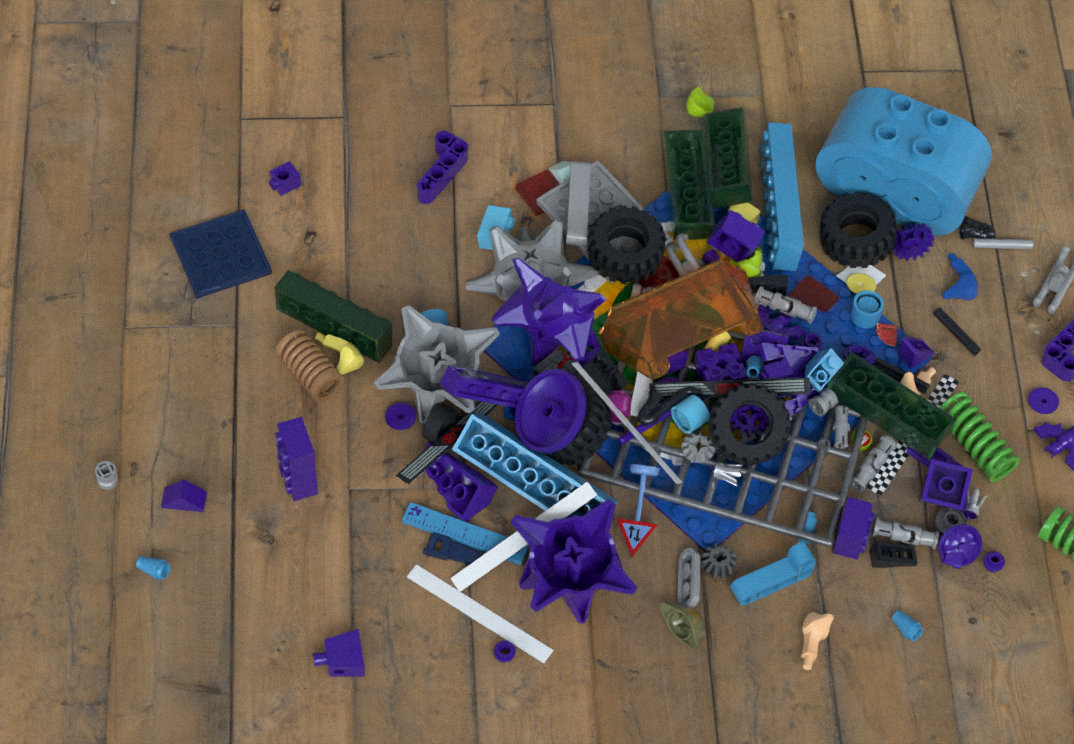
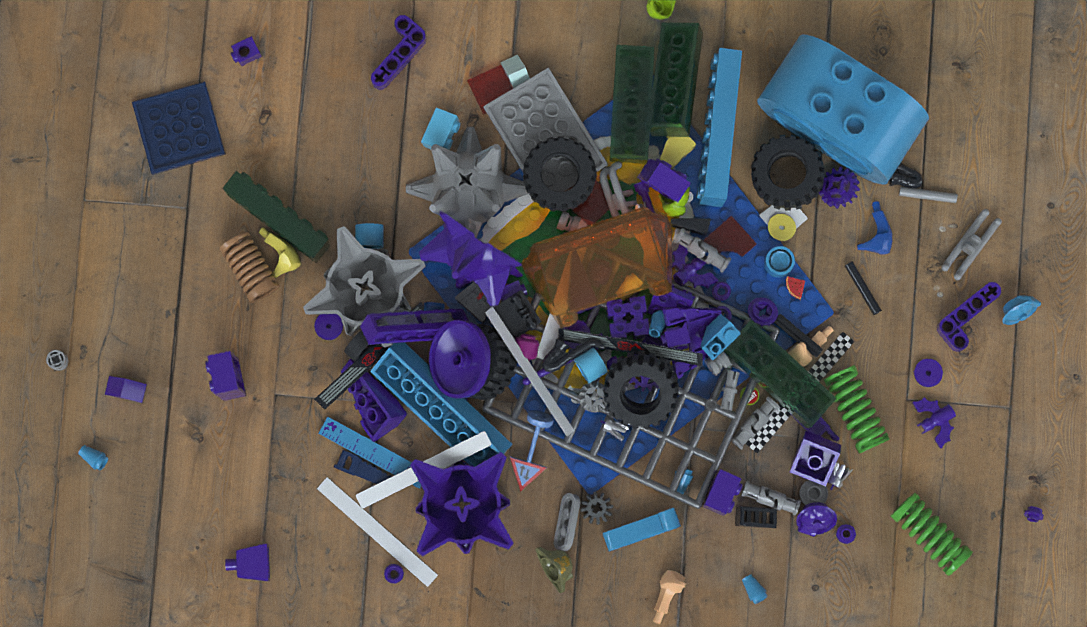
camera: 10 degrees right, 25 degrees up
(578, 203) = (521, 119): light grey beam -> none
(914, 351) = (817, 310): dark purple slope -> none

